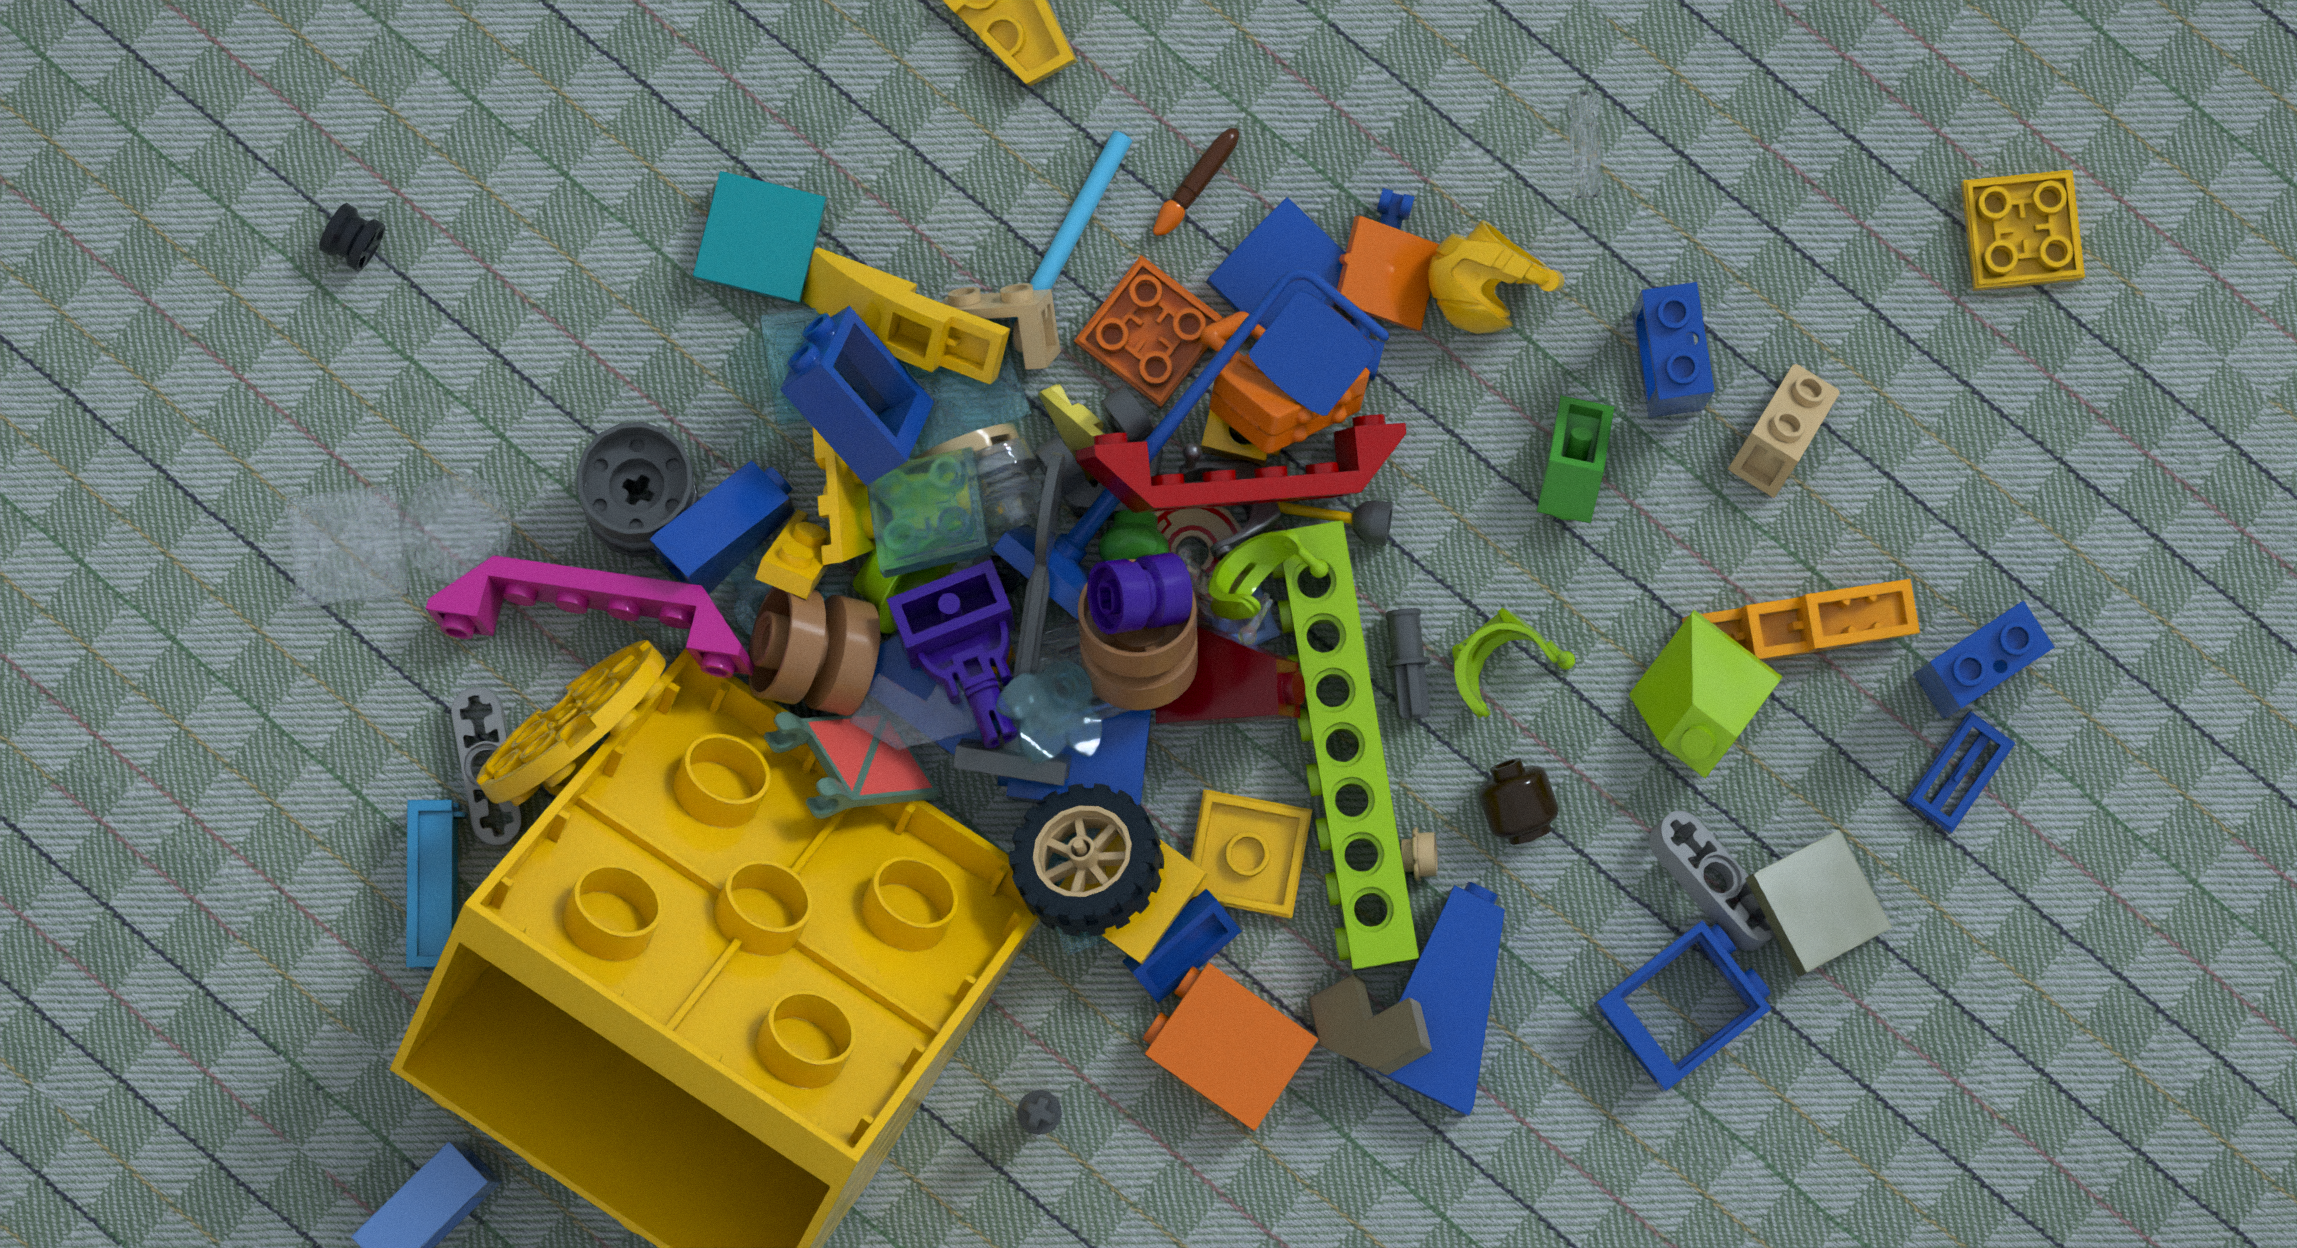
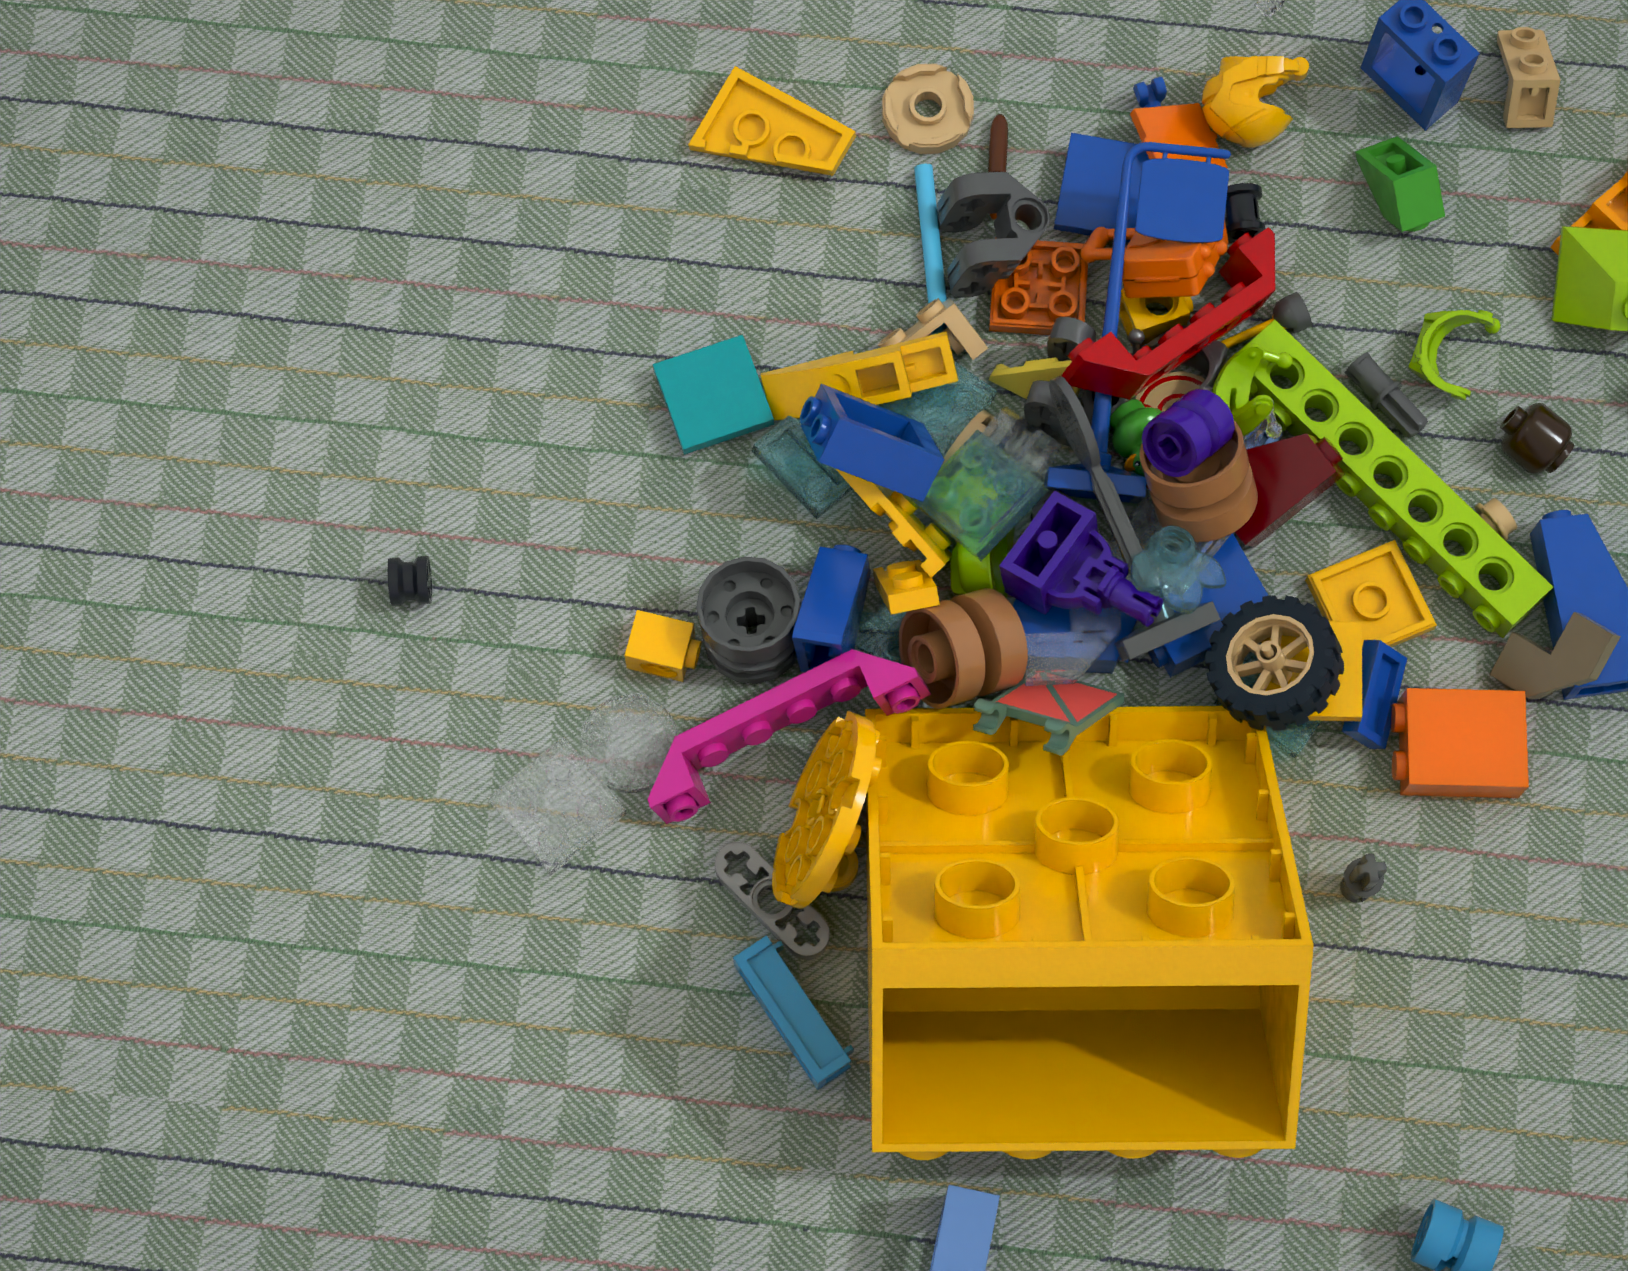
camera: 40 degrees left, 10 degrees down
(543, 456) = (662, 646): none -> yellow brick
(1136, 211) = (987, 260): none -> dark grey piece
(1162, 108) = (923, 133): none -> tan tile
(1399, 388) = (1243, 210): none -> black bush

